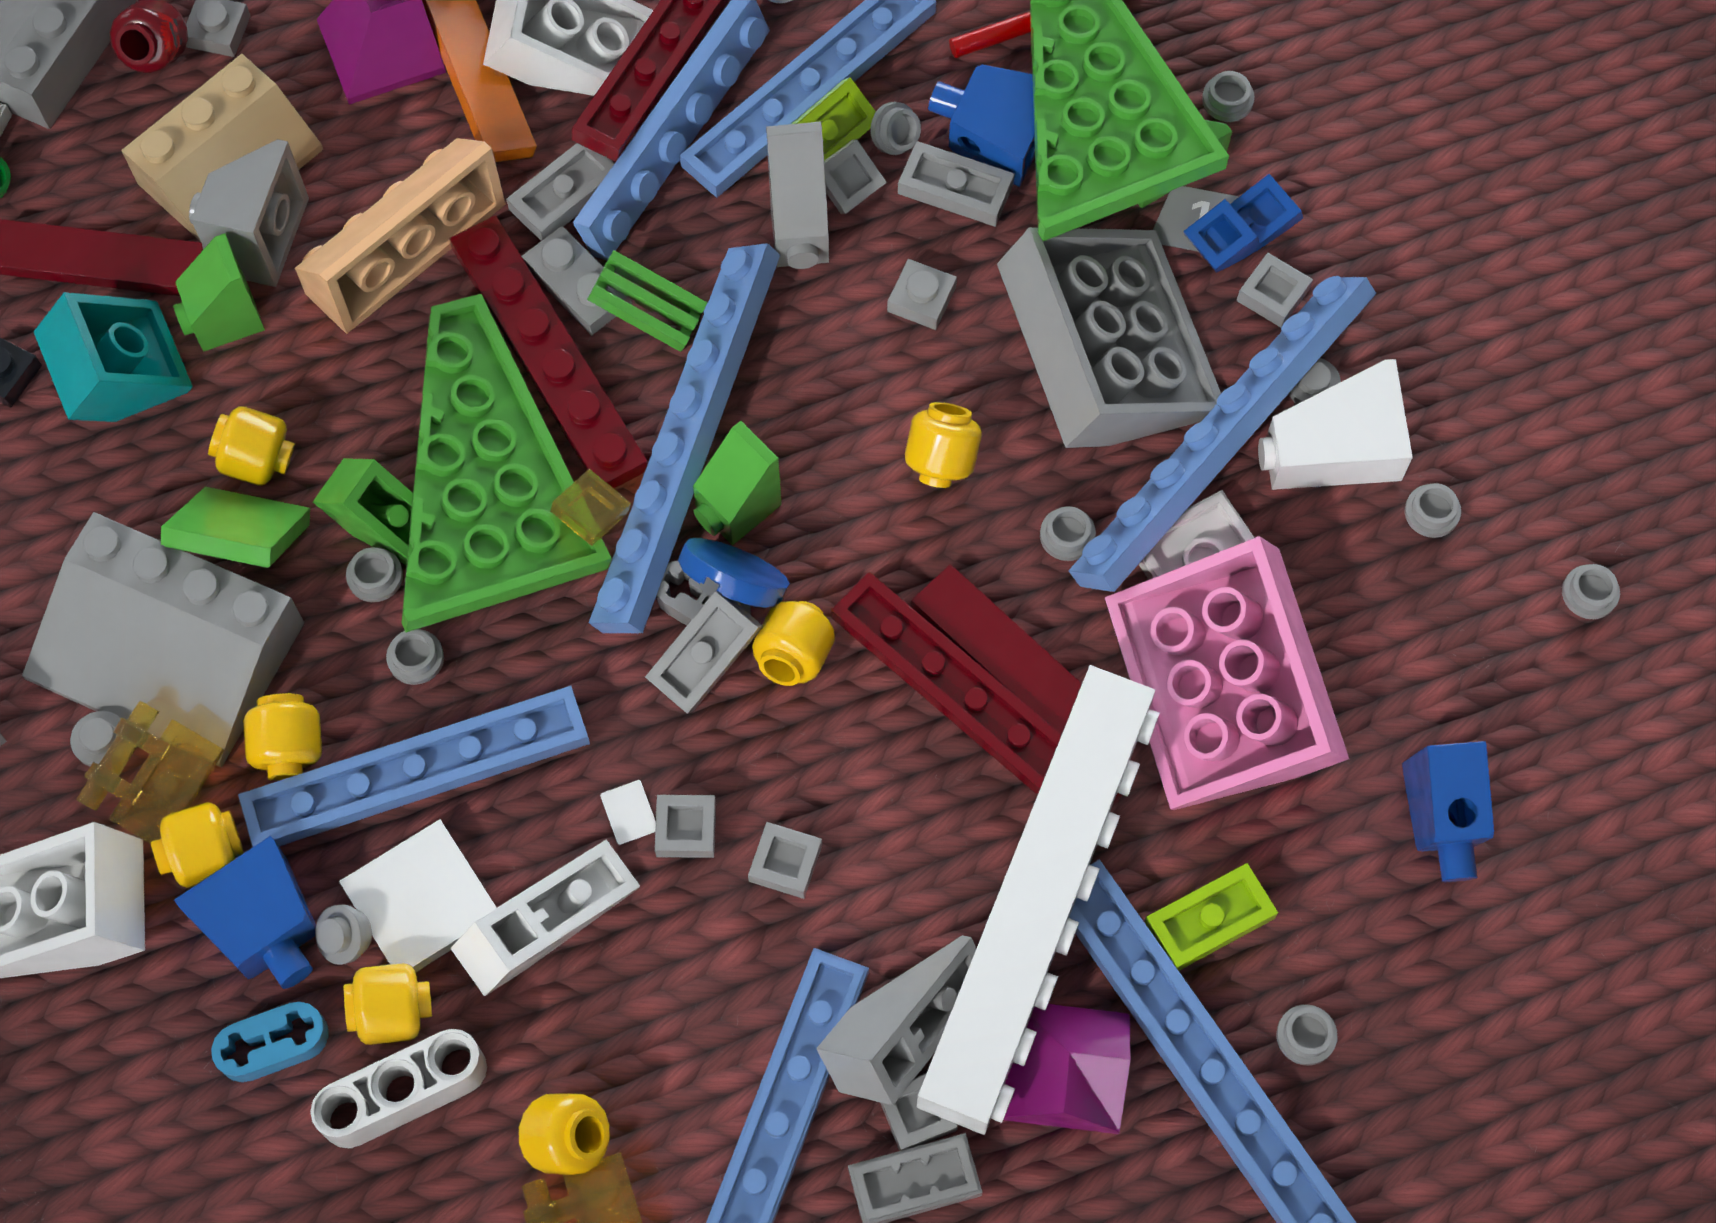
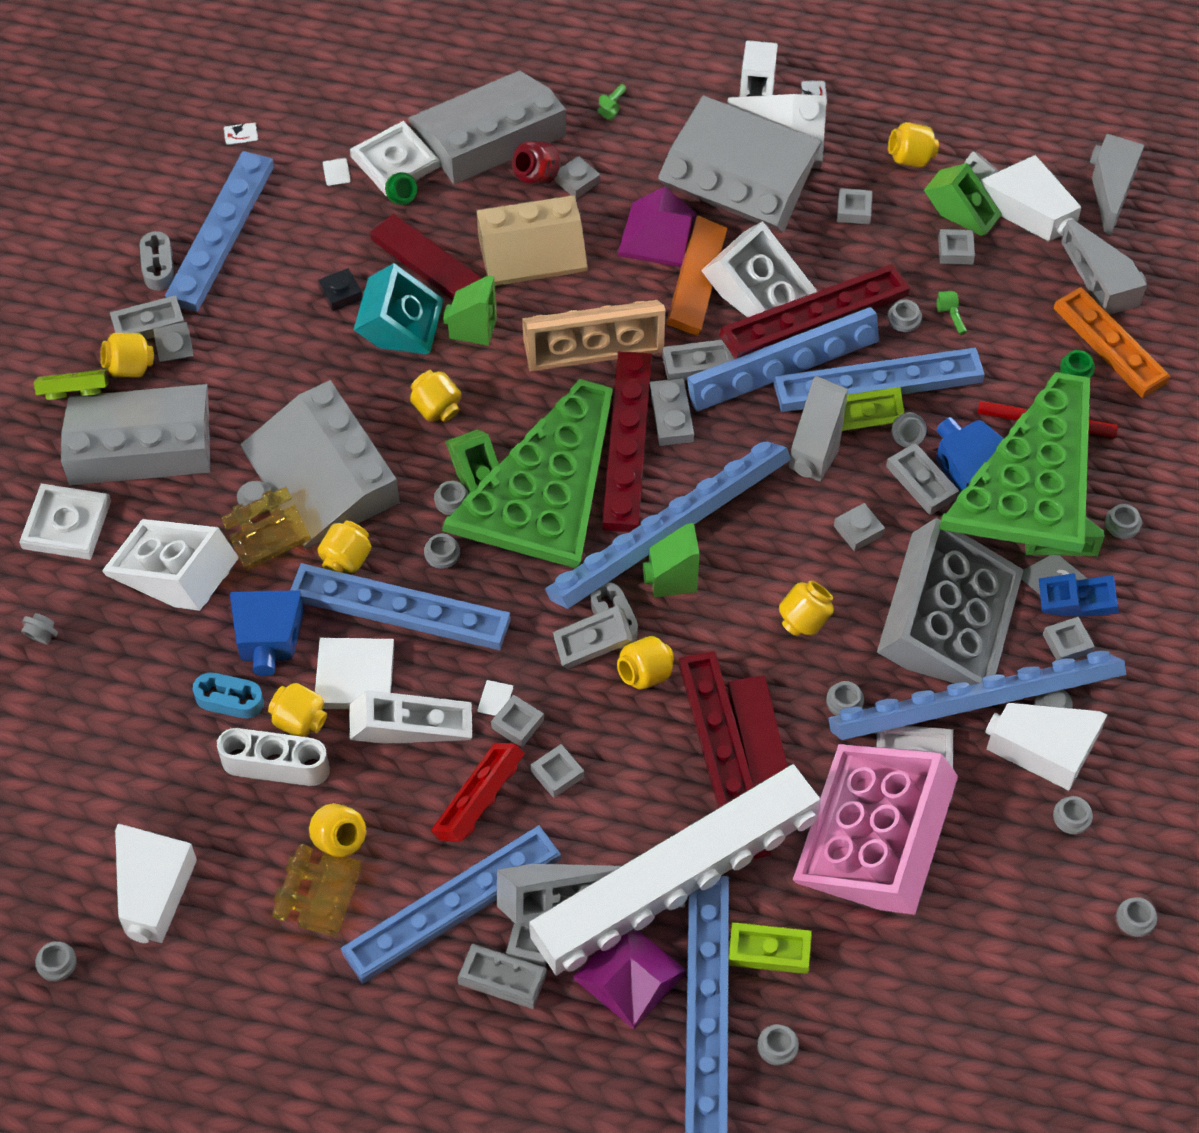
camera: 35 degrees right, 10 degrees down
(196, 843) = (262, 572): yellow head -> none
(235, 527) = (397, 430): bright green tile -> none
(256, 206) = (523, 277): light grey slope -> none
(342, 934) = (302, 664): light grey plate -> none
(590, 507) = (587, 528): clear yellow tile -> none
(655, 284) = (710, 435): bright green tile -> none
(706, 957) = (478, 792): none -> red plate
(737, 572) = (638, 605): blue tile -> none
(851, 176) = (862, 440): light grey plate -> none
(1456, 783) = (957, 960): blue torso -> none

